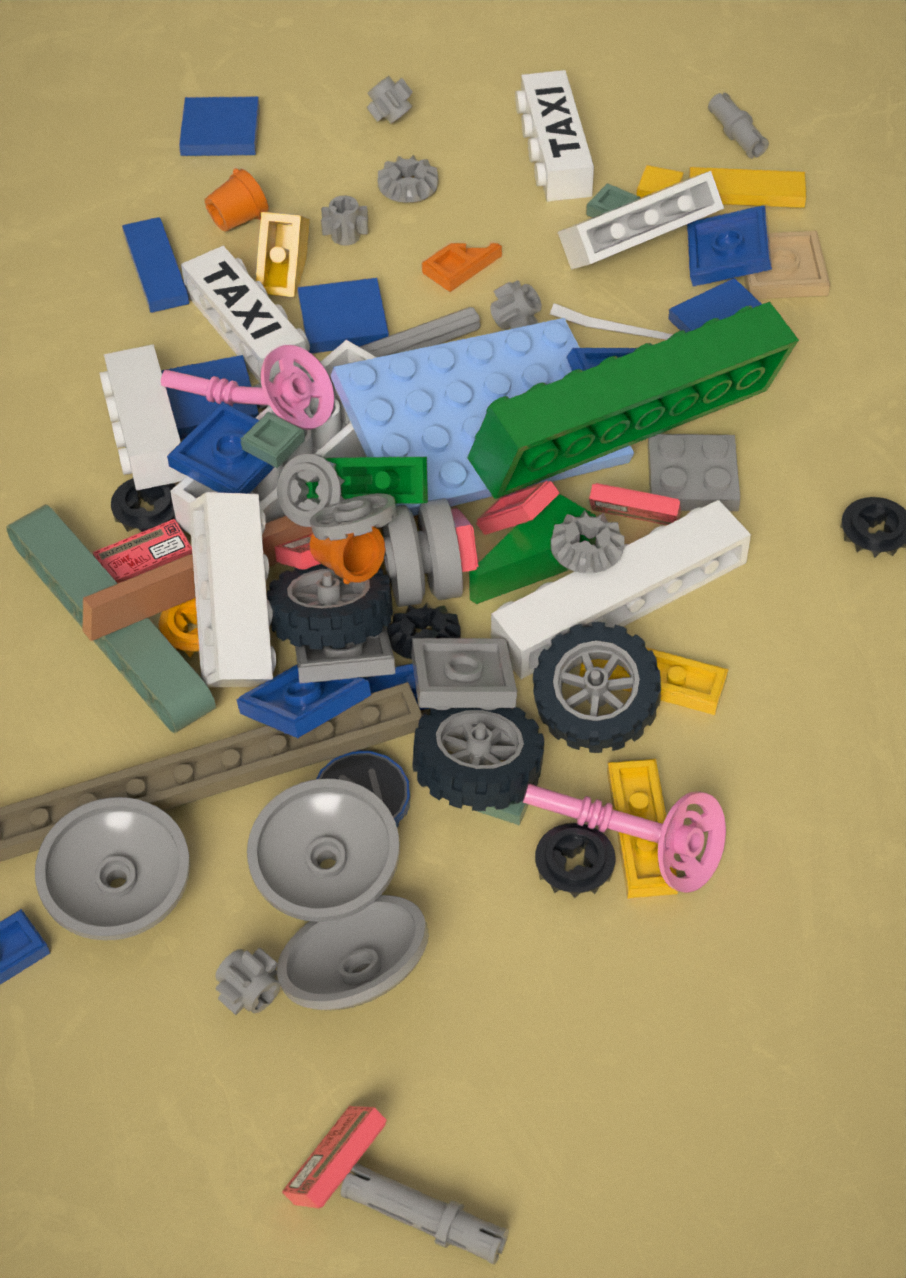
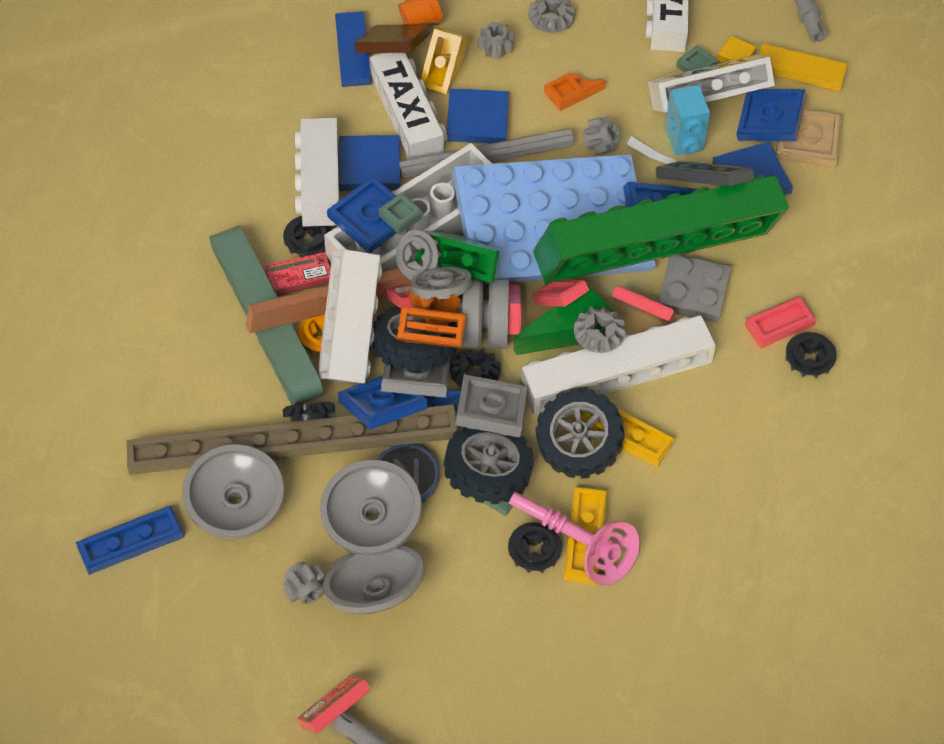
camera: 10 degrees right, 5 degrees up
(200, 732) = (308, 411): none -> black gear
(206, 238) = (392, 38): none -> reddish brown tile
(286, 395) = (417, 178): bright pink dish -> none
(353, 597) = (429, 339): none -> orange tile
(624, 266) = (687, 120): none -> medium azure brick
(672, 319) = (705, 173): none -> dark grey tile
(821, 494) = (780, 322): none -> coral tile

